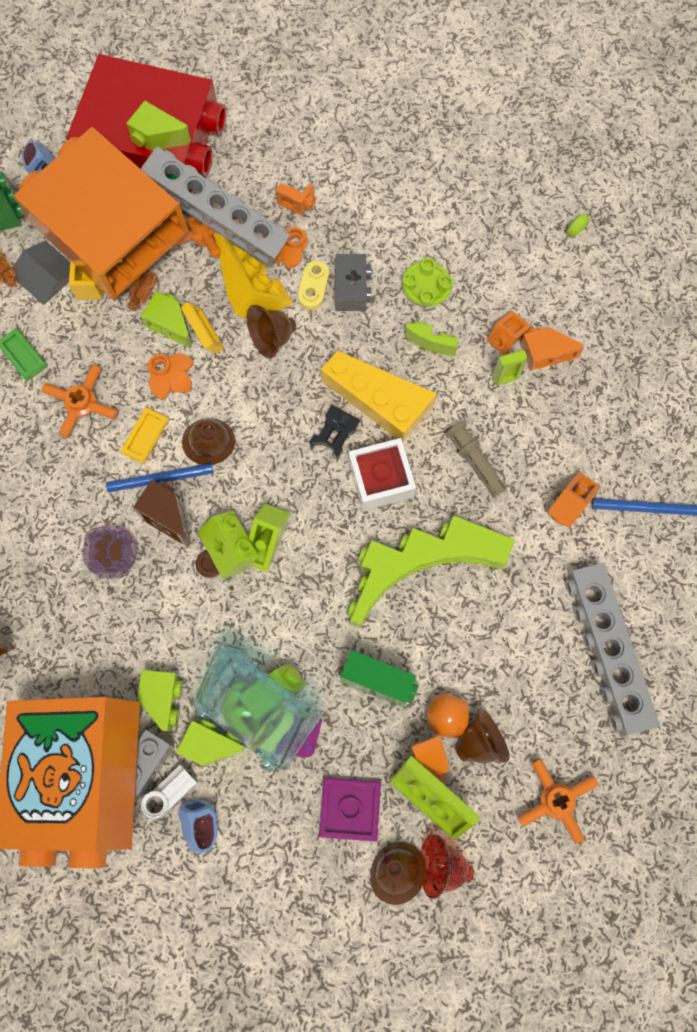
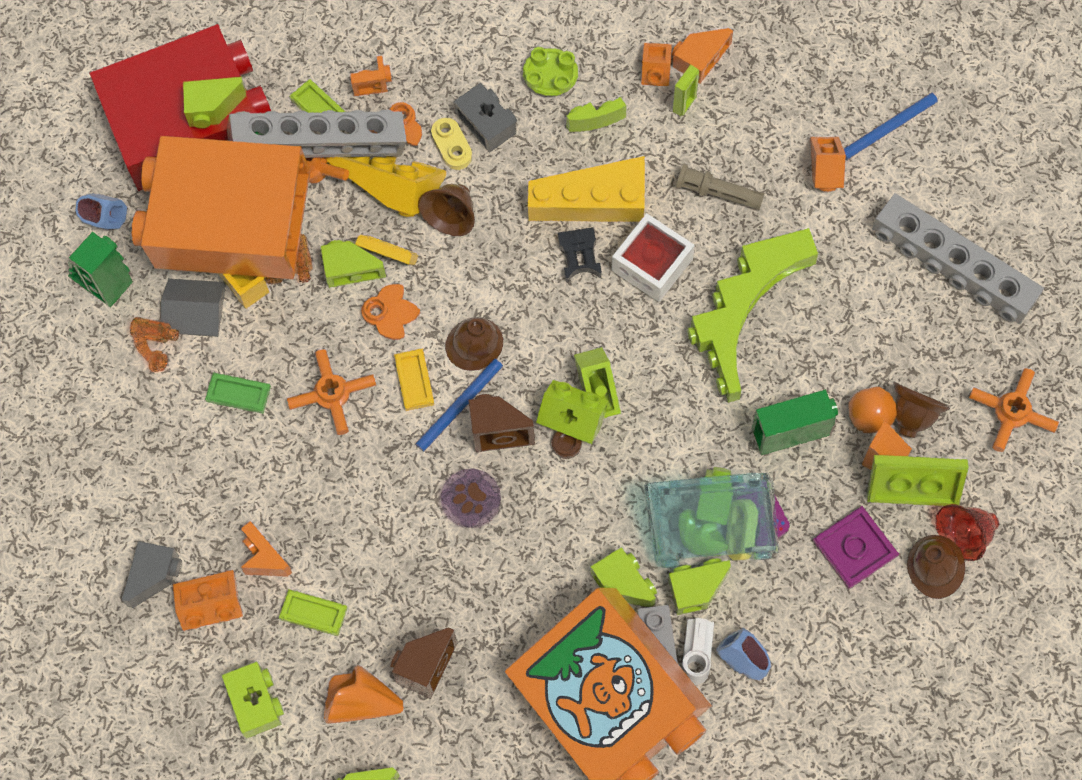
camera: 35 degrees left, 5 degrees down
(245, 187) = (313, 99): none -> lime tile

